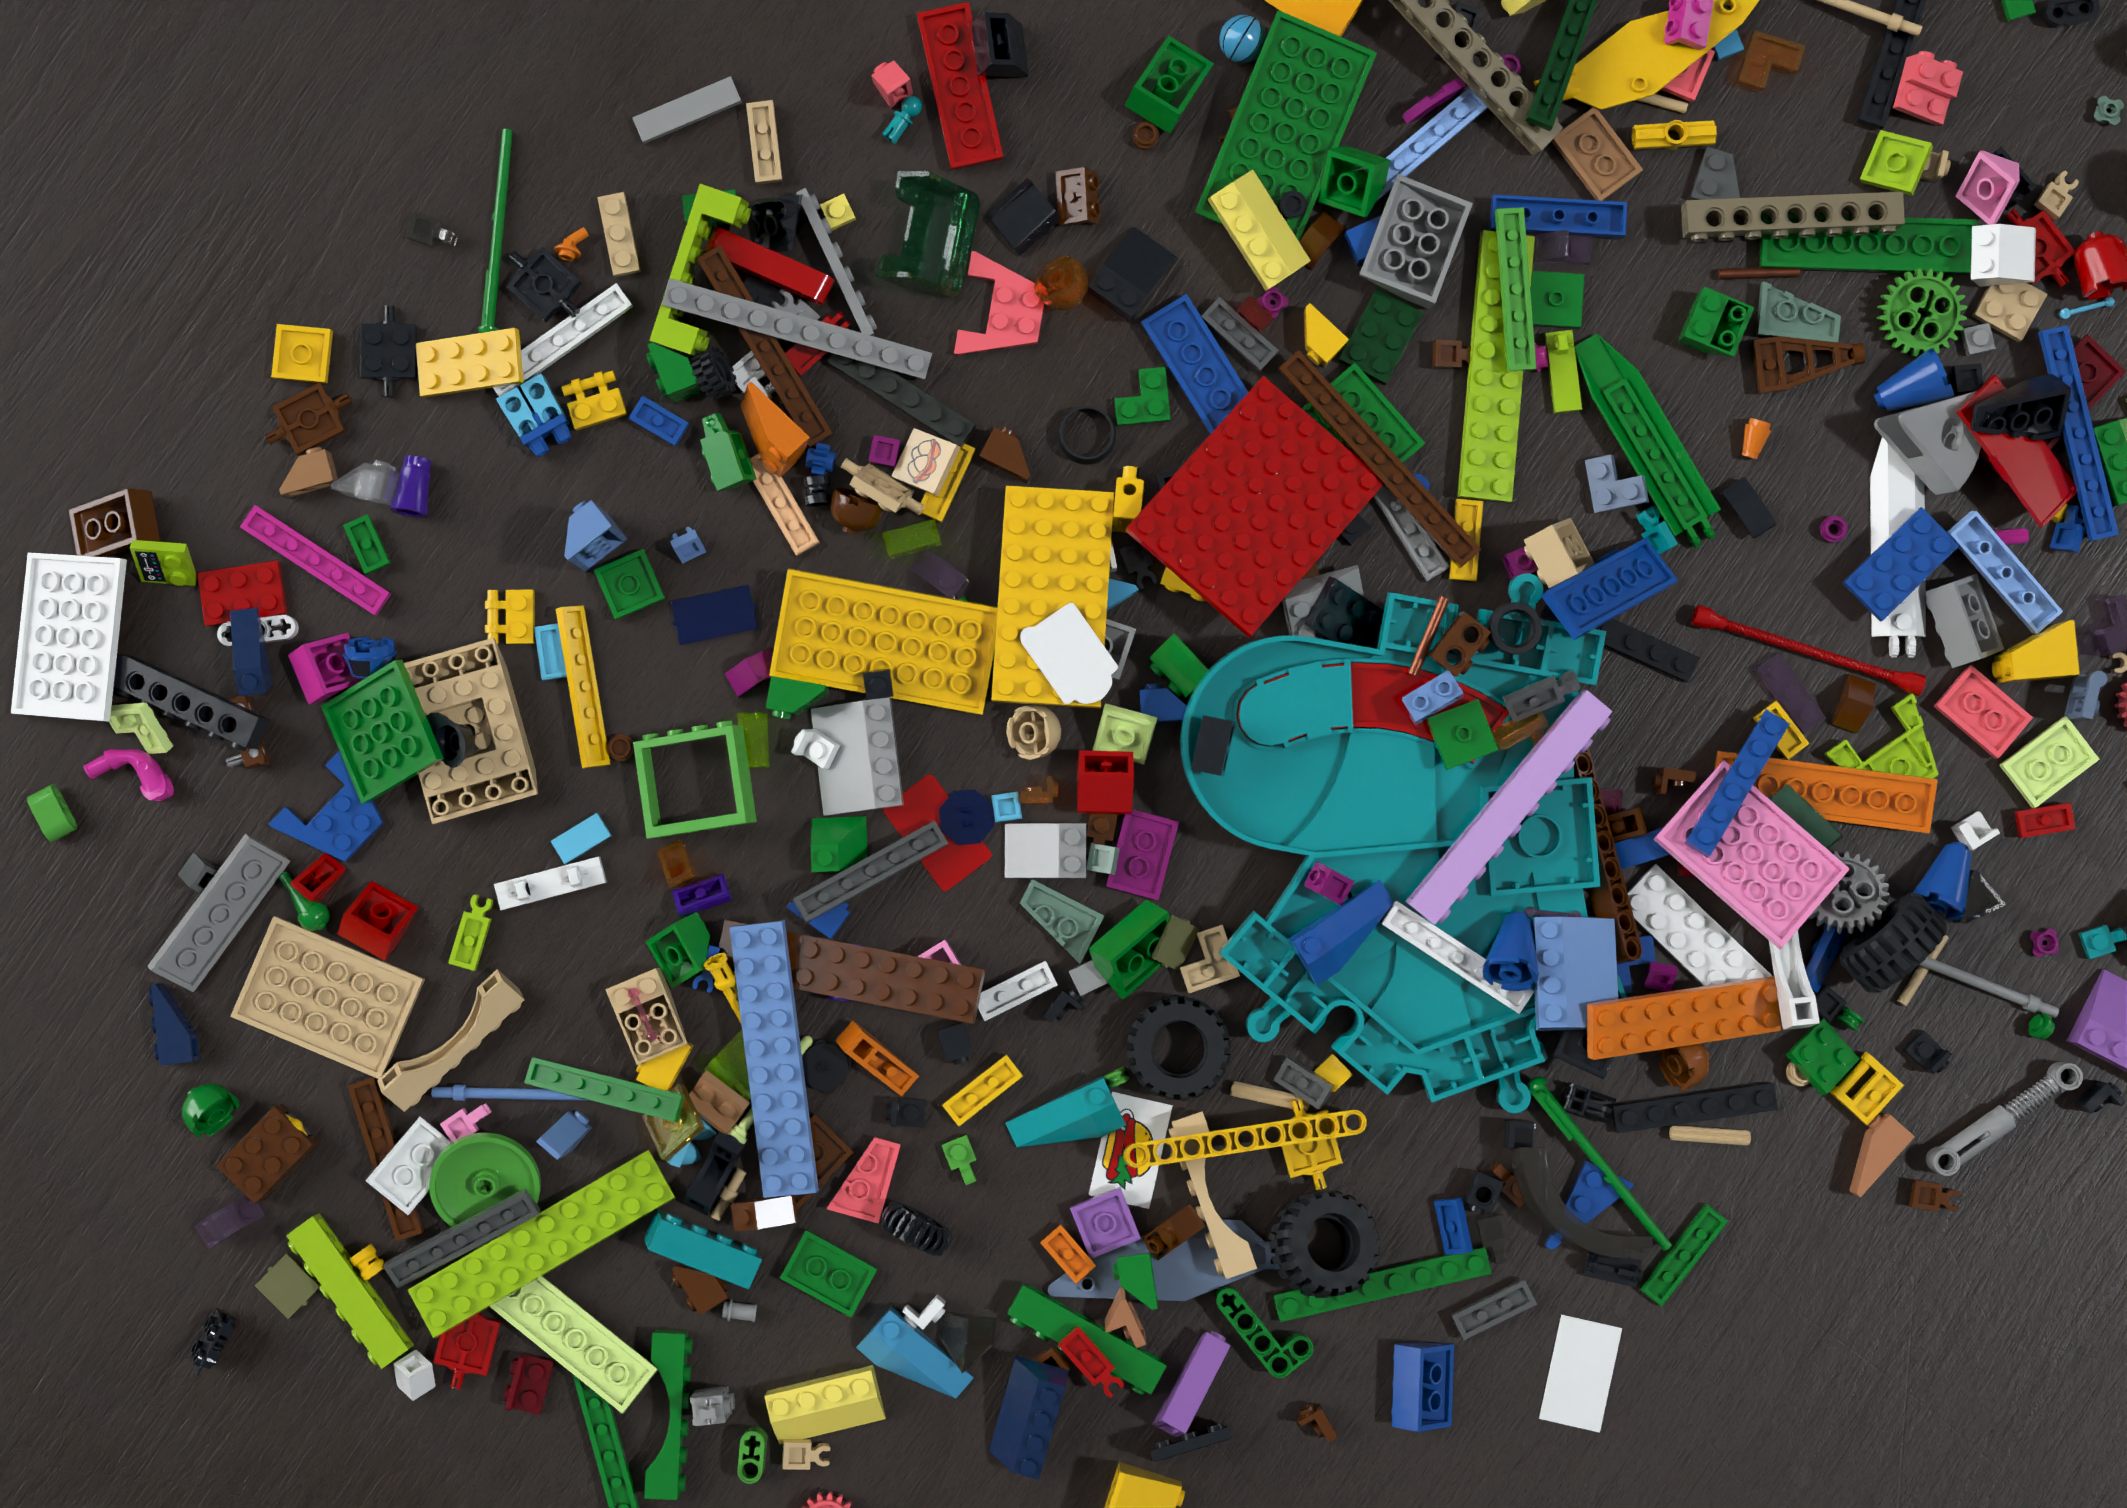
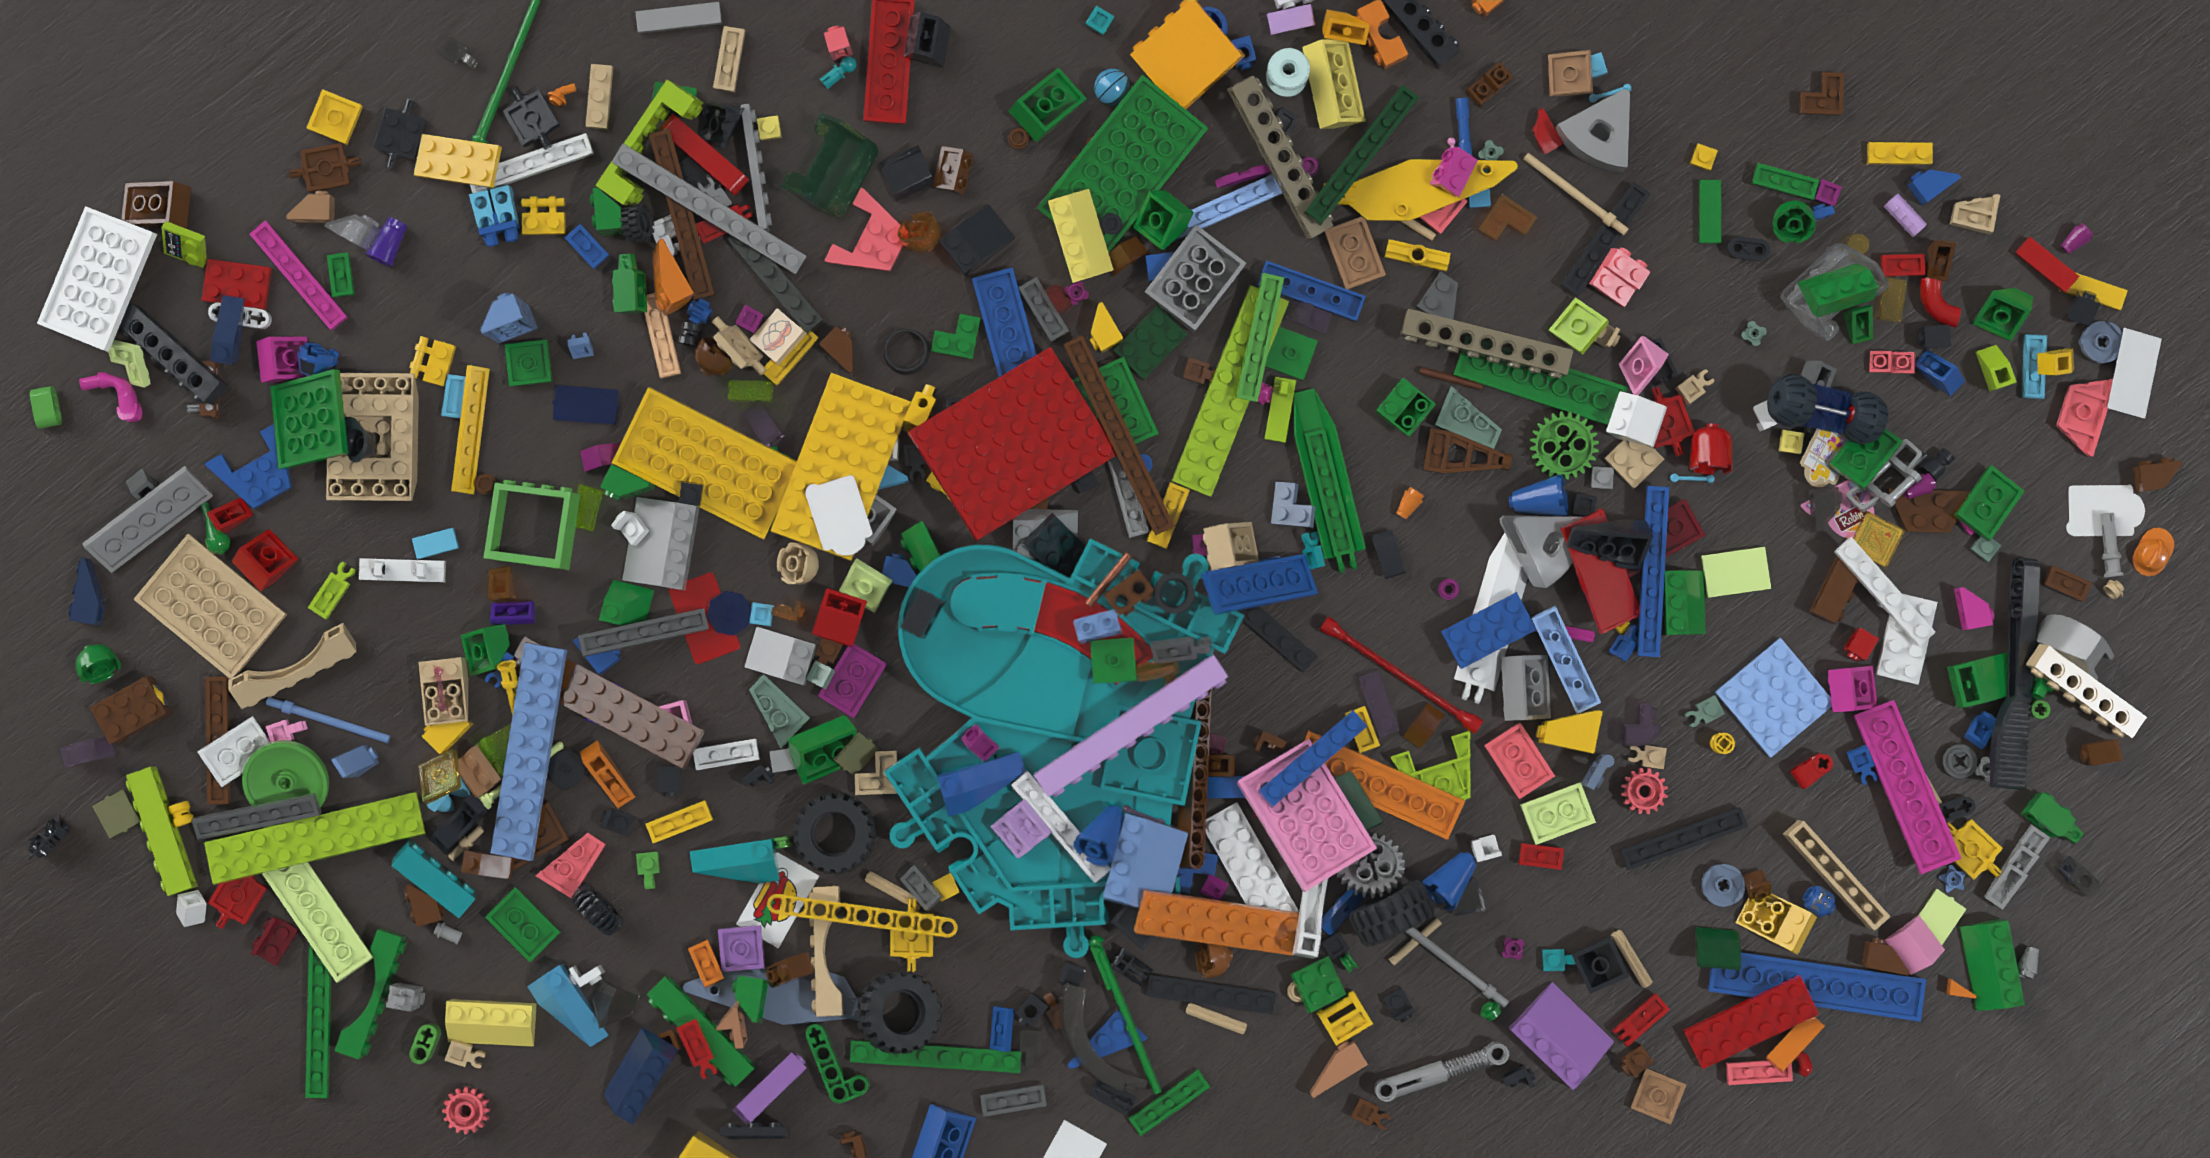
camera: 20 degrees right, 0 degrees up
(604, 1090) = (395, 737): green plate -> none
(1409, 974) = (1021, 828): none -> lavender slope

